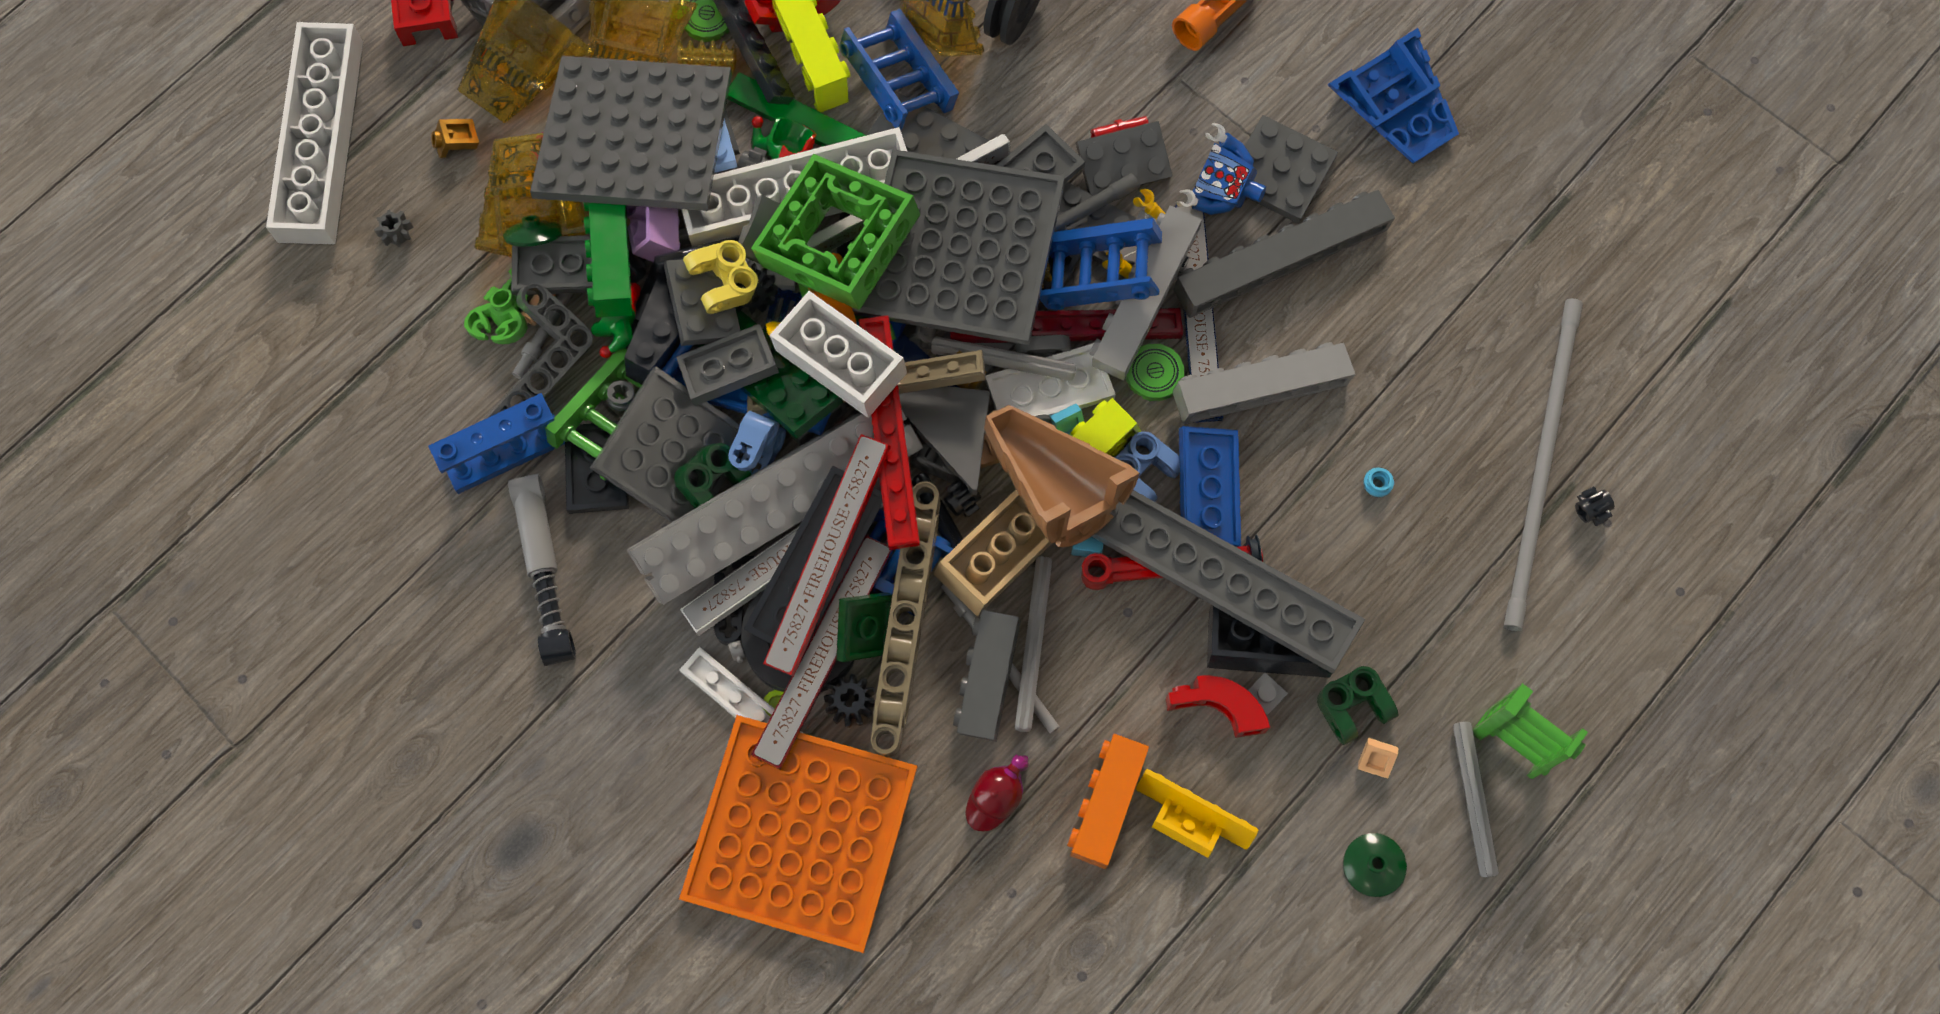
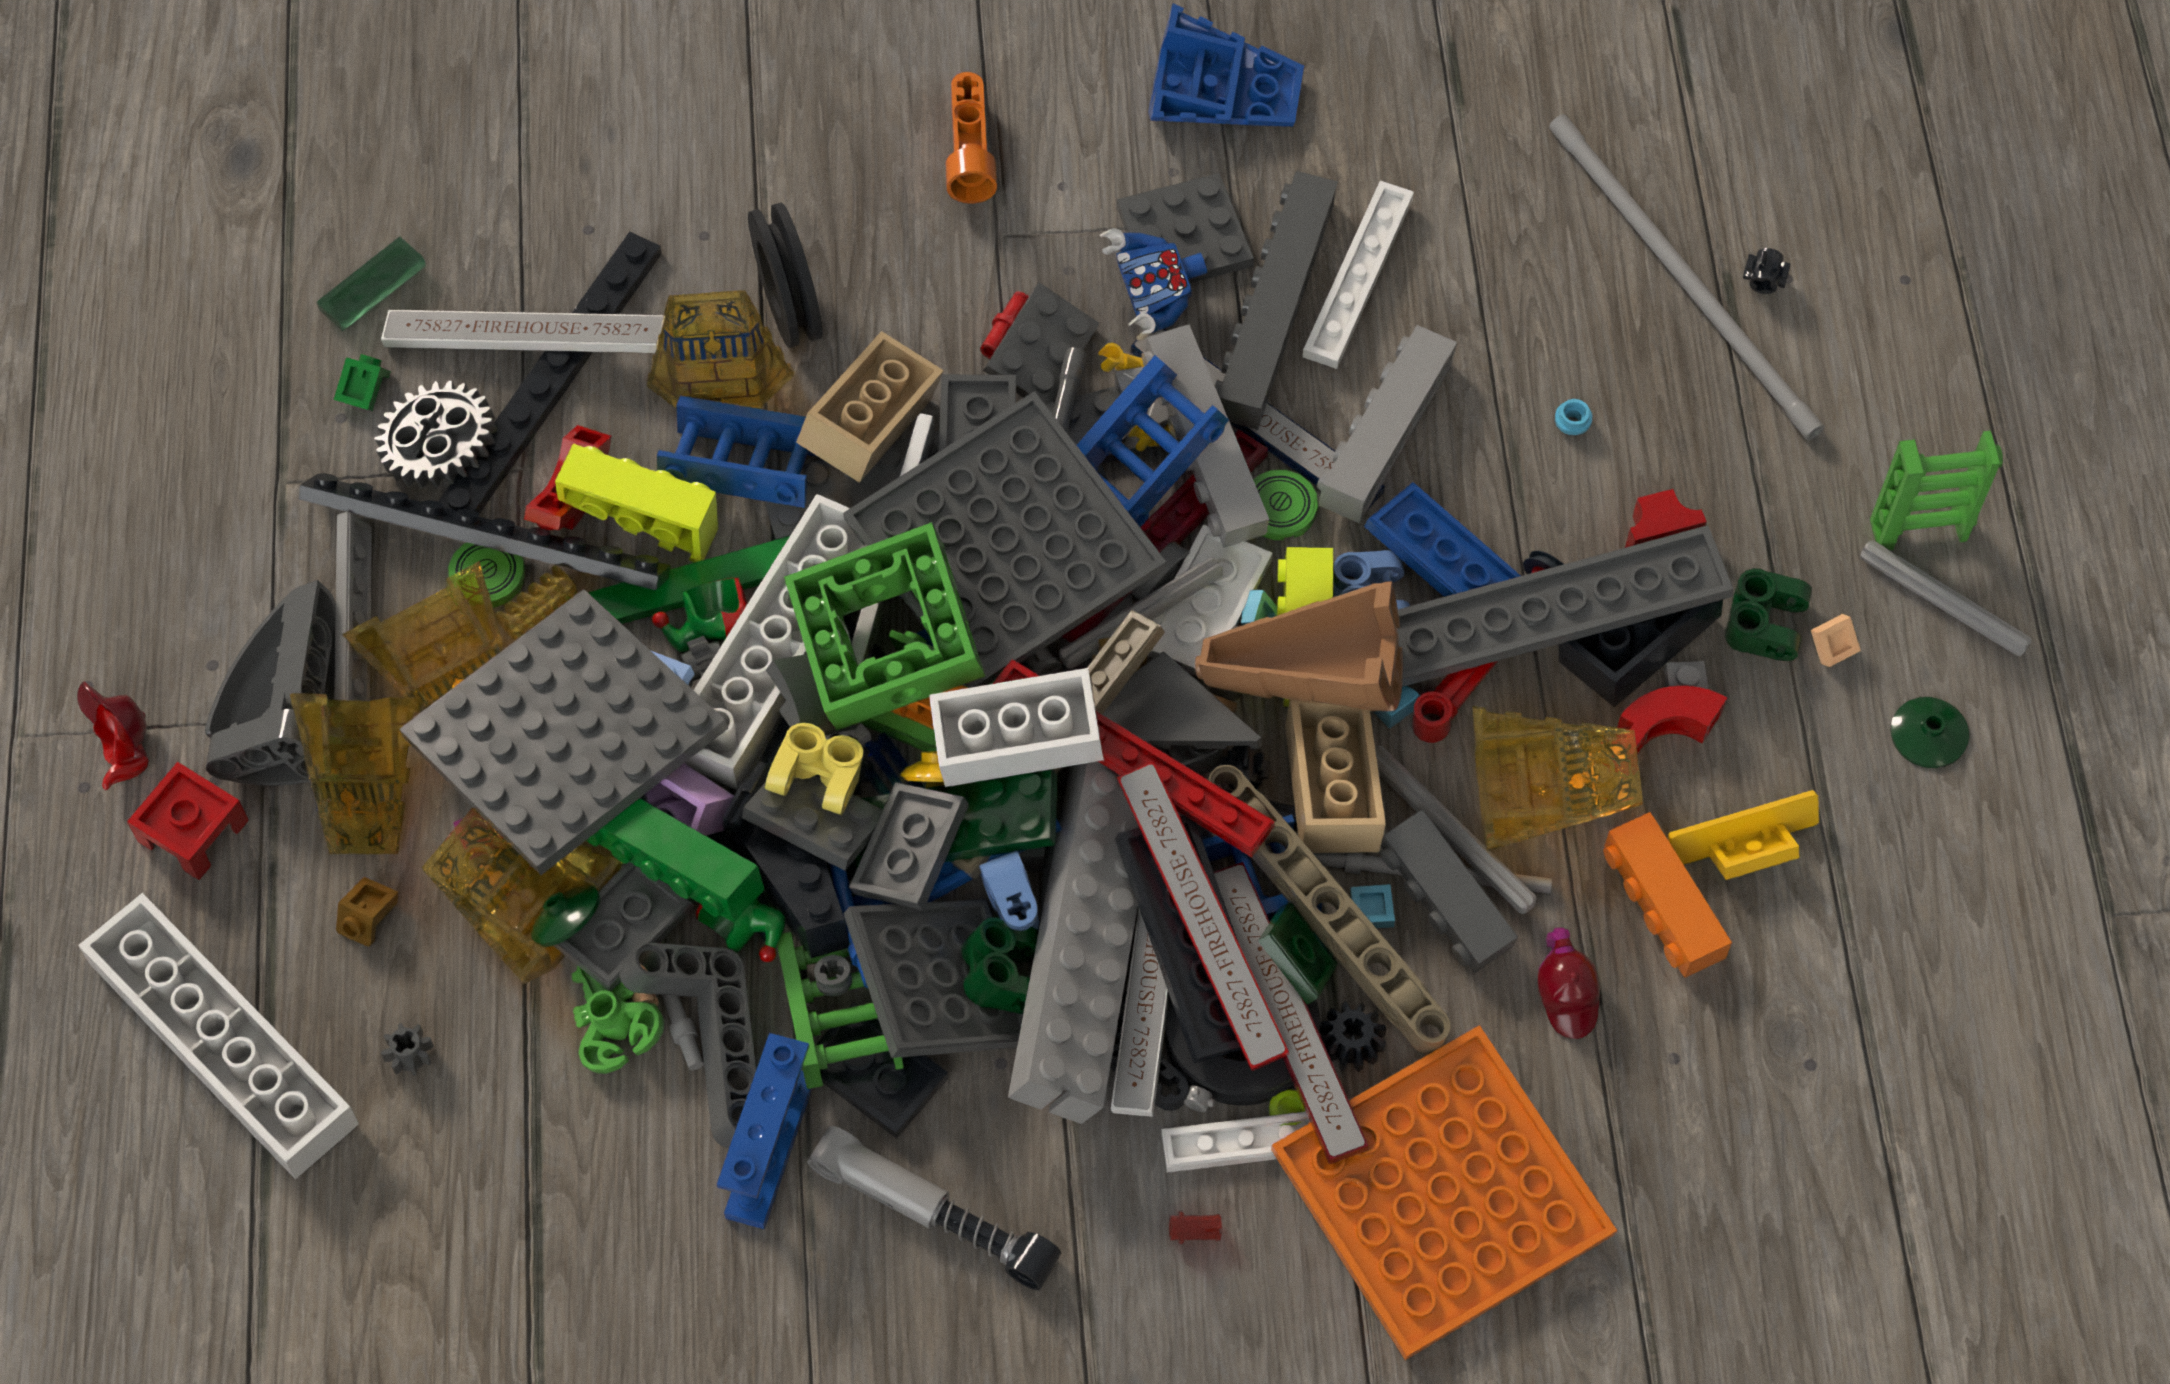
camera: 45 degrees left, 10 degrees down
(656, 716) = (1194, 1227): none -> clear red pin
(943, 642) = (1375, 903): none -> medium azure plate
(985, 105) = (869, 406): none -> tan brick
(1117, 670) = (1549, 774): none -> clear yellow wedge
(1350, 283) = (1358, 275): none -> white plate
(1355, 592) = (1662, 516): none -> red brick

